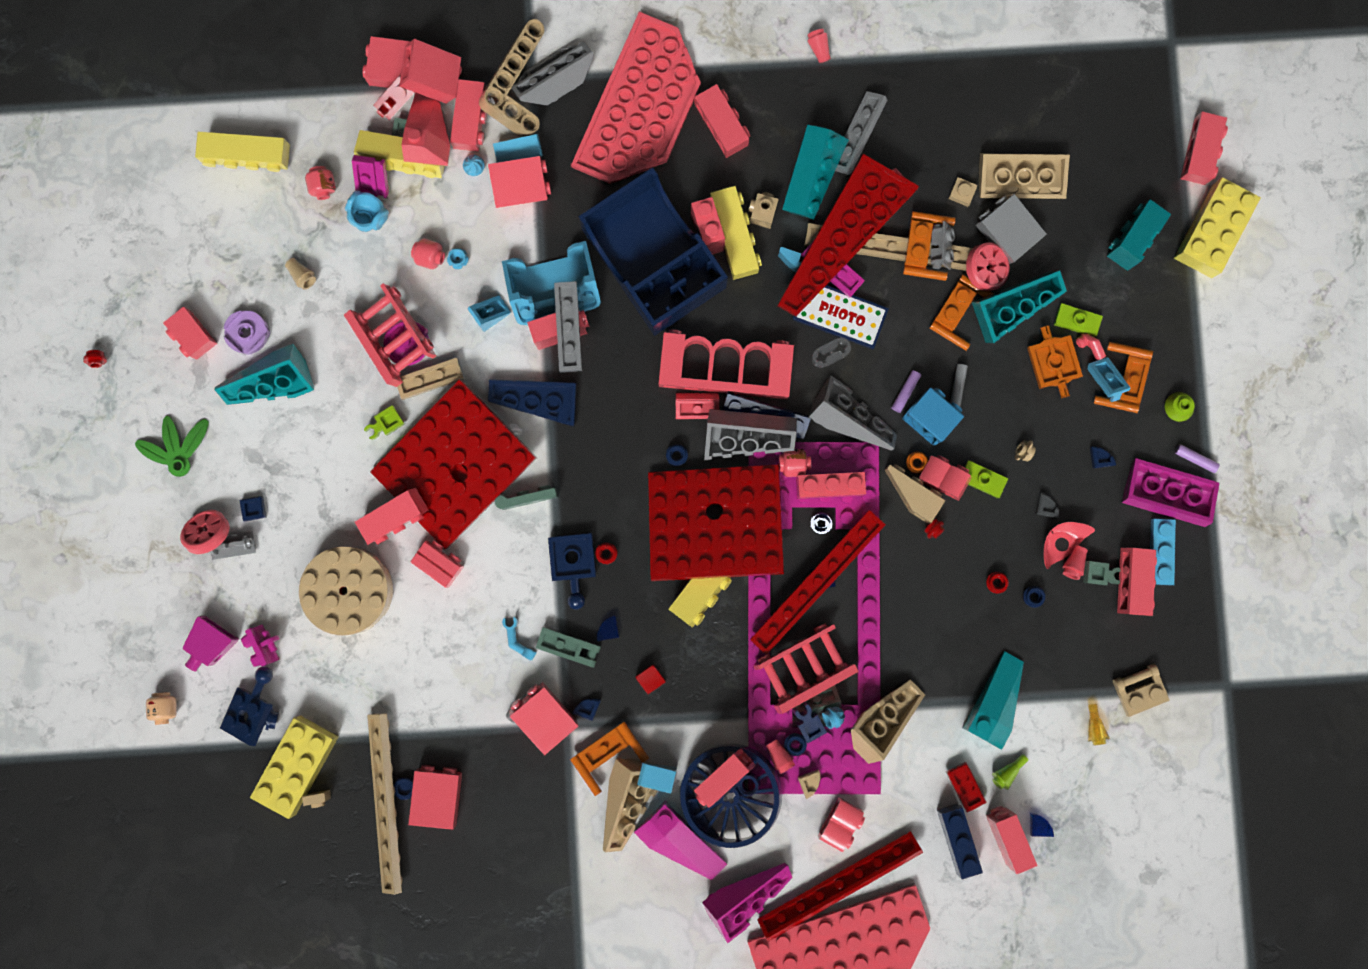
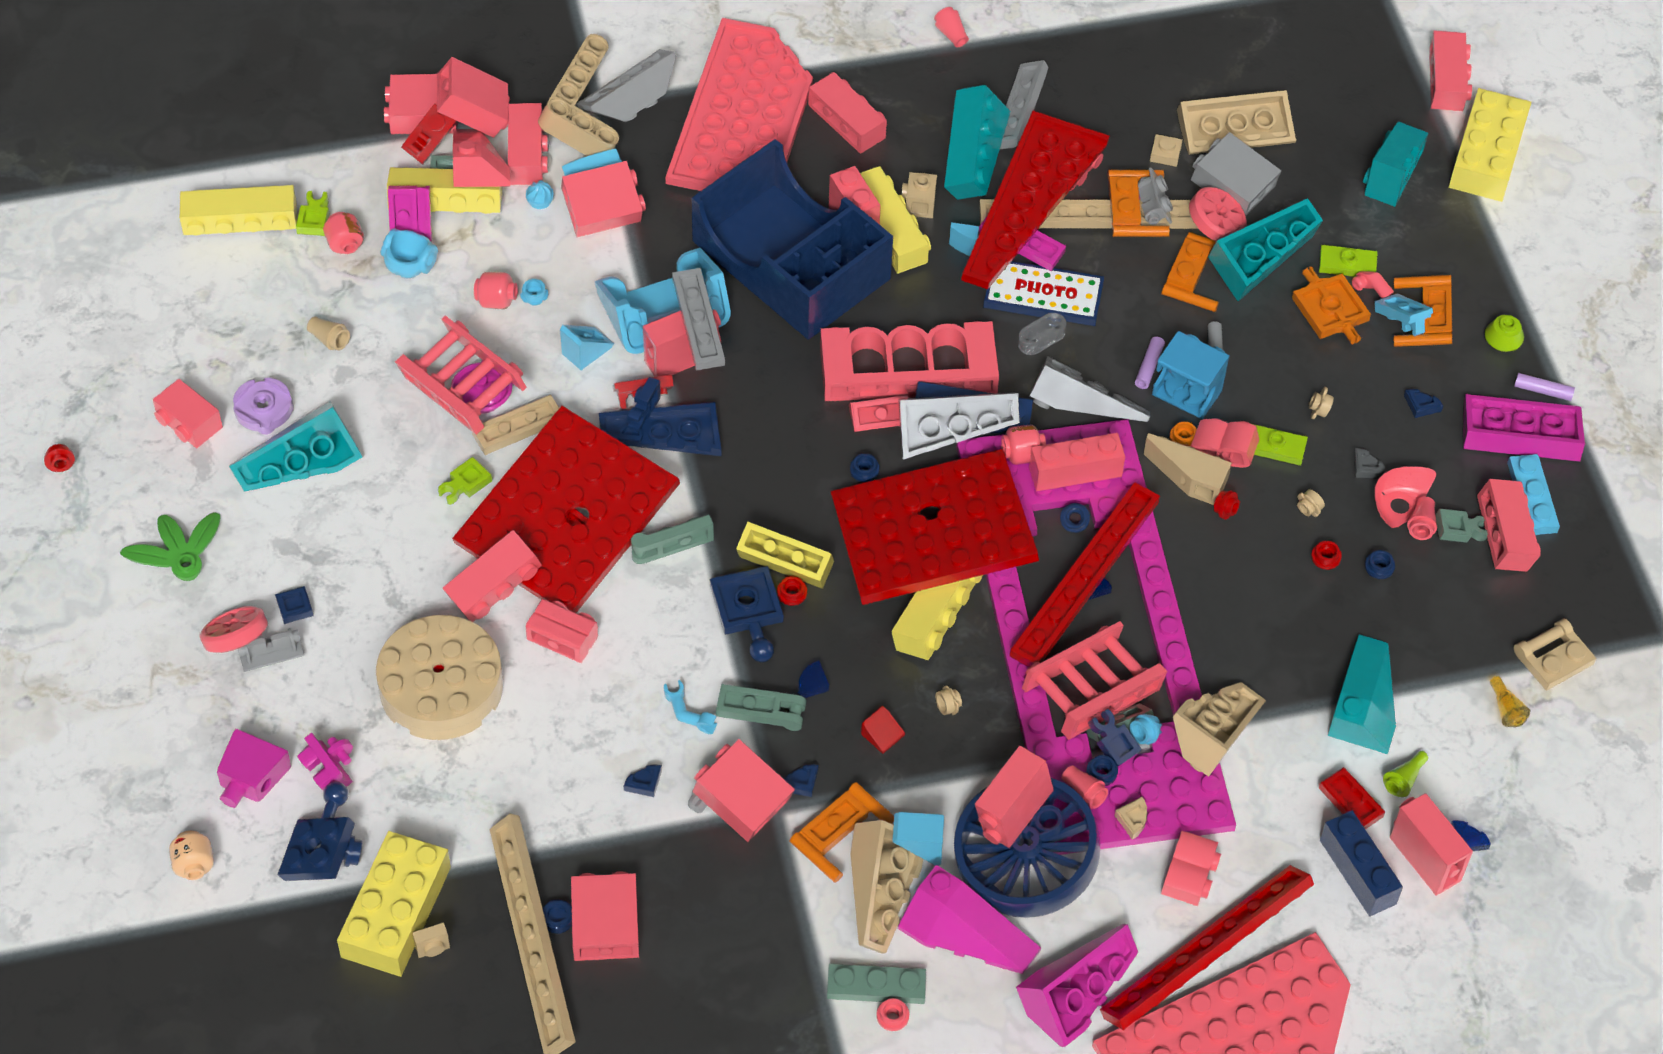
camera: 10 degrees left, 30 degrees down
(300, 162) = (313, 217): none -> lime plate
(479, 691) = (644, 781): none -> dark blue tile
(523, 379) = (646, 400): none -> dark blue plate
(532, 359) = (630, 387): none -> red plate
(604, 528) = (785, 555): none -> light yellow brick
(611, 873) = (876, 983): none -> sand green plate
(617, 906) = (892, 1006): none -> coral plate
(700, 662) = (948, 700): none -> tan plate
(996, 537) = (1310, 503): none -> tan plate

